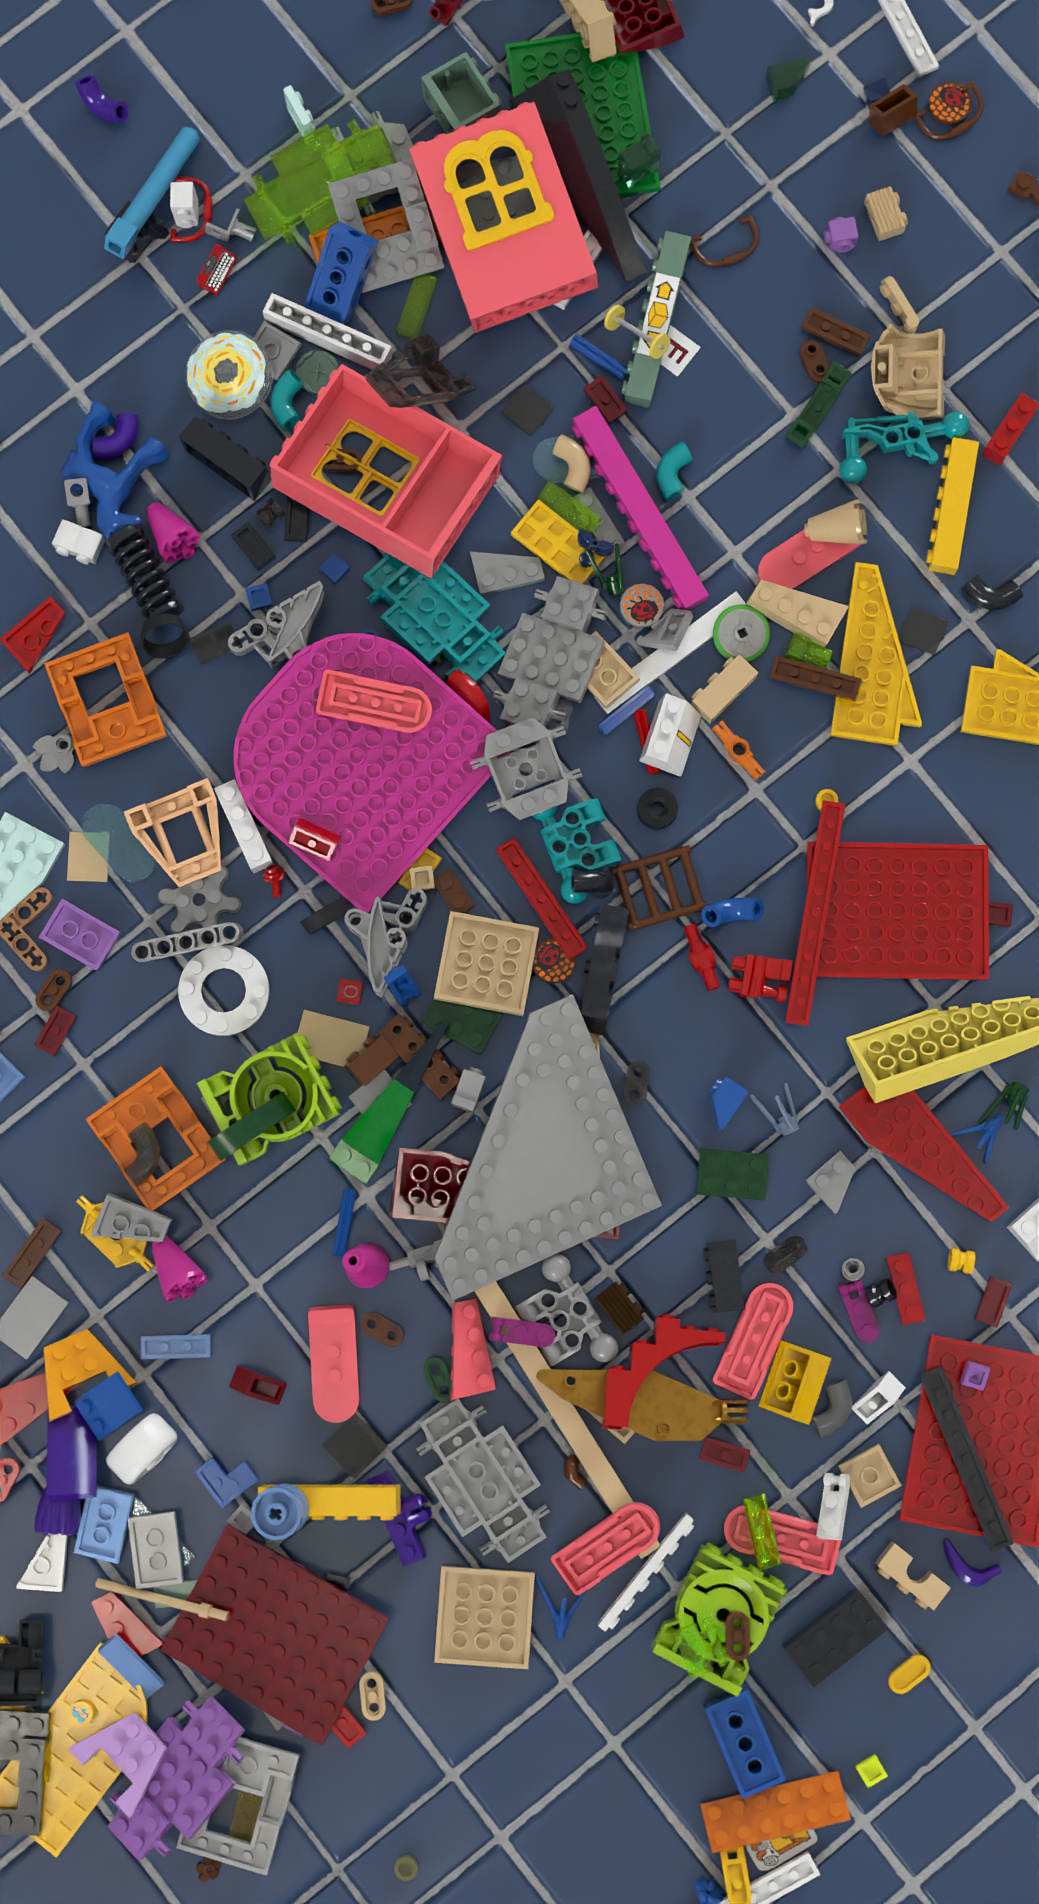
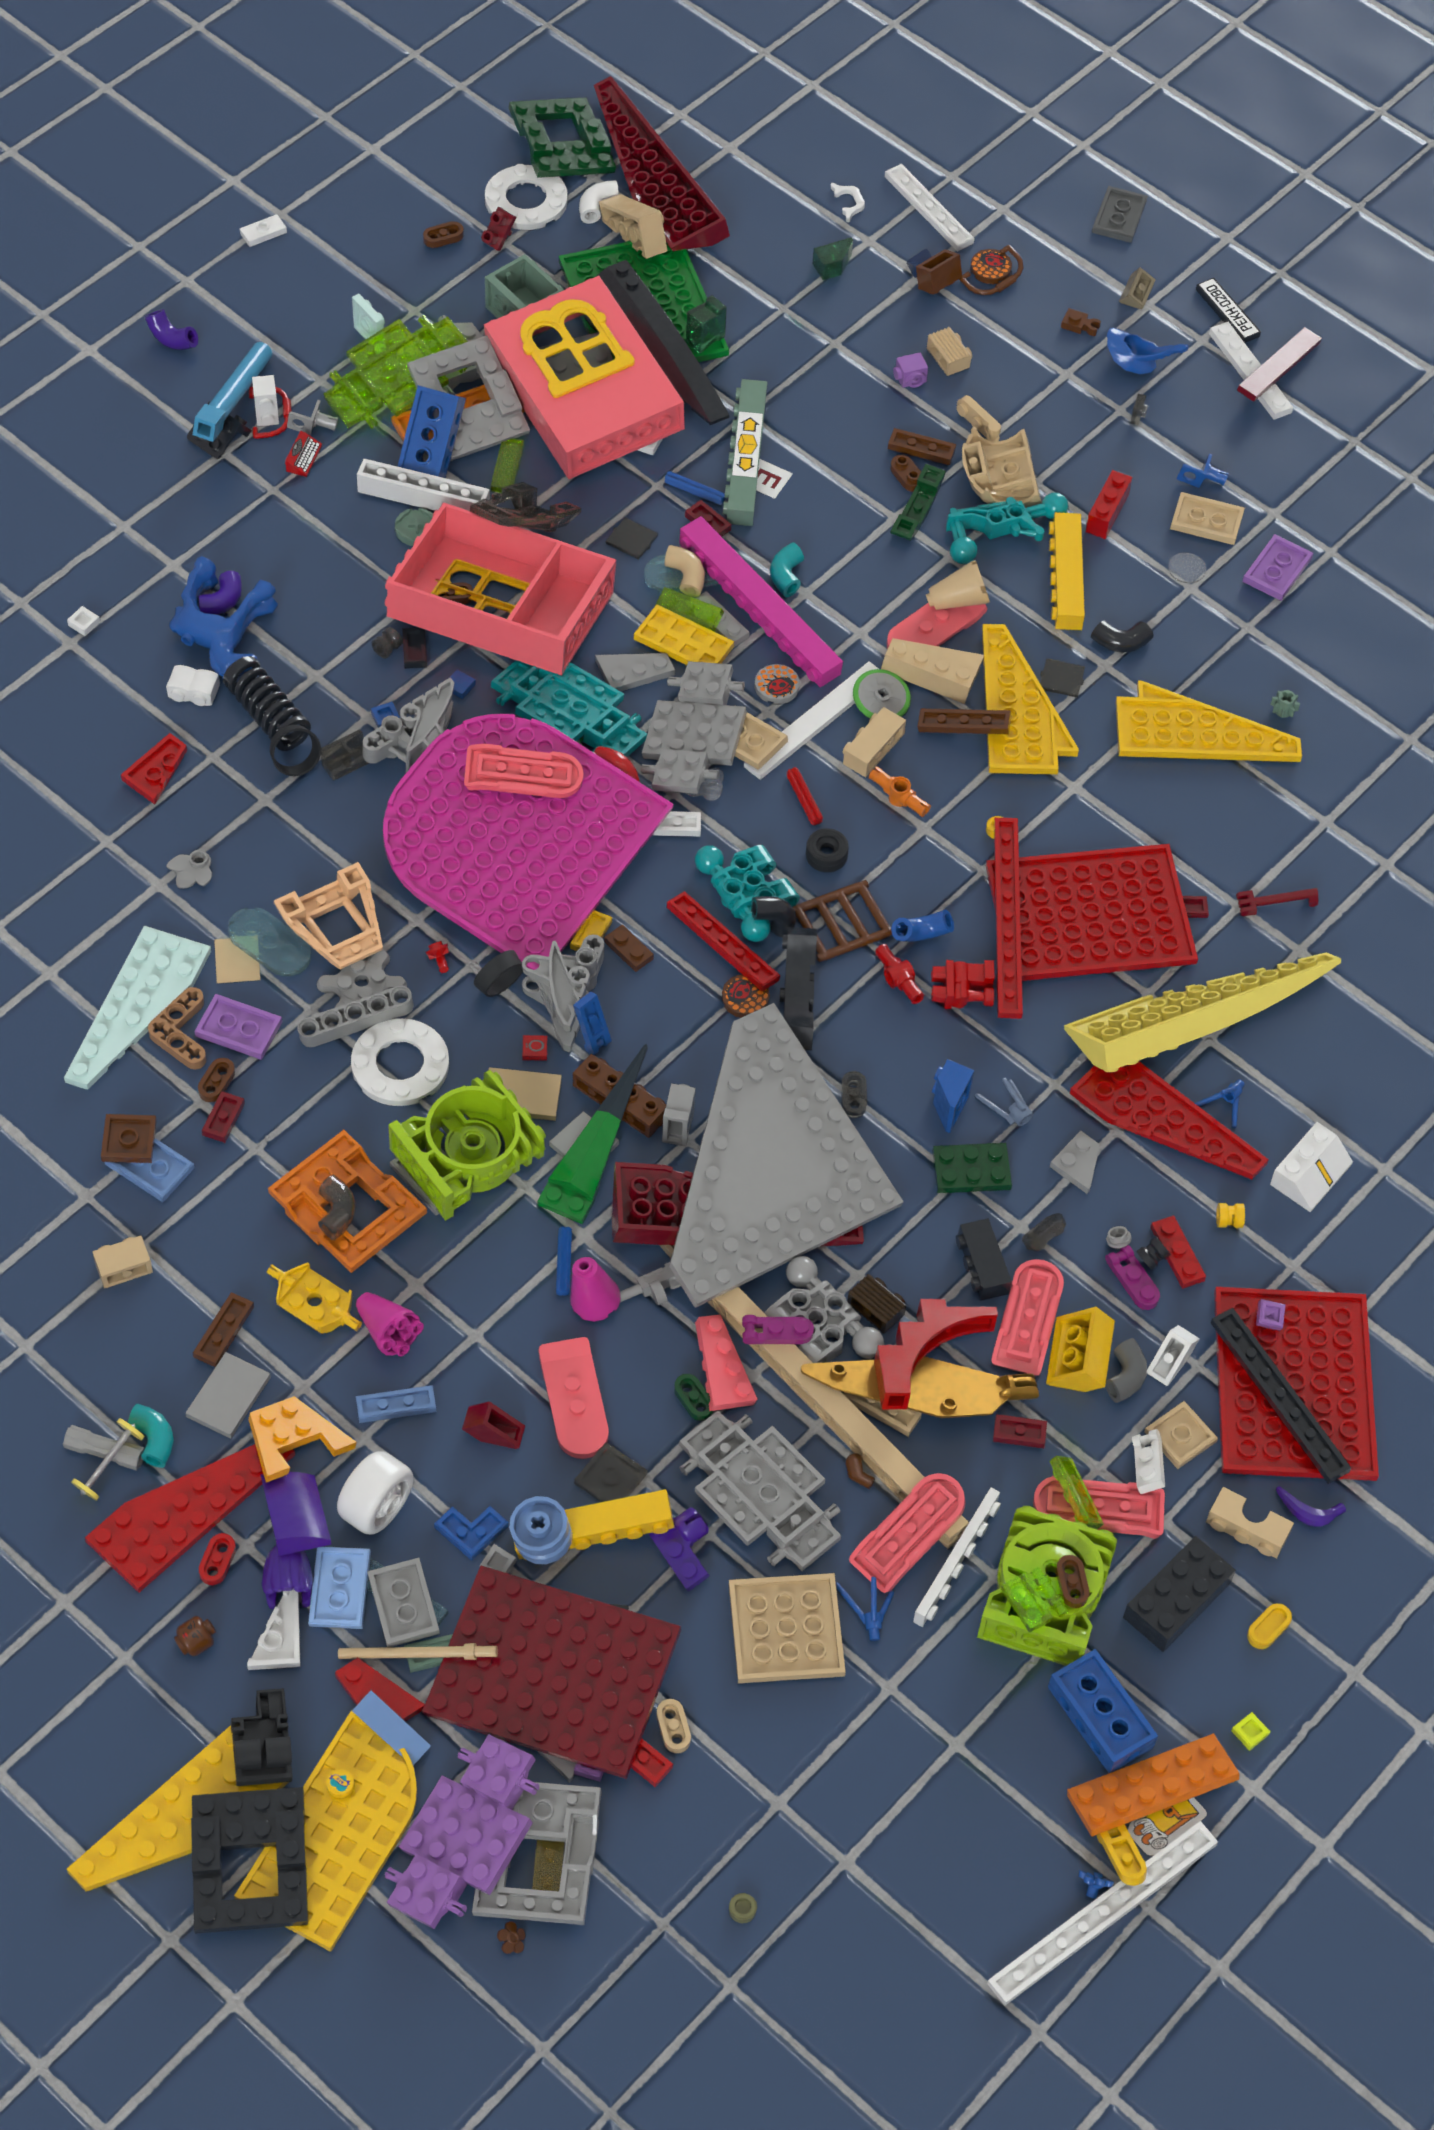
camera: 15 degrees left, 25 degrees down
(80, 503) = (192, 648): light grey bracket -> none
(108, 1406) = (329, 1460): blue slope -> none
(119, 727) = (249, 838): orange piece -> none
(129, 1220) = (330, 1277): light grey wing -> none
(132, 1749) = (404, 1808): lavender wing -> none
(171, 533) = (290, 667): dark pink cone -> none
(225, 458) = (335, 598): black brick -> none
(229, 374) = (328, 534): dish -> none
(243, 826) = (401, 909): white brick -> none
(251, 1126) = (450, 1157): dark green slope -> none
(253, 546) = (373, 674): black tile -> none
(279, 347) = (368, 512): light grey plate -> none
(282, 399) = (385, 547): teal cylinder -> none
(314, 839) = (477, 905): red slope -> none
(370, 1060) = (568, 1101): reddish brown brick -> none
(381, 1329) = (621, 1359): reddish brown plate -> none
(422, 878) = (596, 927): tan plate -> none
(466, 1024) = (665, 1059): dark green plate -> none
(486, 963) = (676, 1001): tan plate -> none
(544, 766) = (711, 826): light grey piece -> none
(586, 541) = (718, 634): dark blue plant -> none
(614, 582) = (747, 664): dark green plant -> none
(626, 710) = (778, 771): blue axle -> none
(659, 344) = (753, 462): light yellow axle -> none
(668, 631) = (807, 699): light grey wing -> none
(670, 735) = (828, 782): white slope -> none
(737, 257) = (805, 402): reddish brown piece -> none
(803, 650) = (944, 699): clear neon green piece -> none
(993, 1301) = (1273, 1253): dark red tile -> none
(1017, 1096) = (1250, 1061): dark green plant -> none

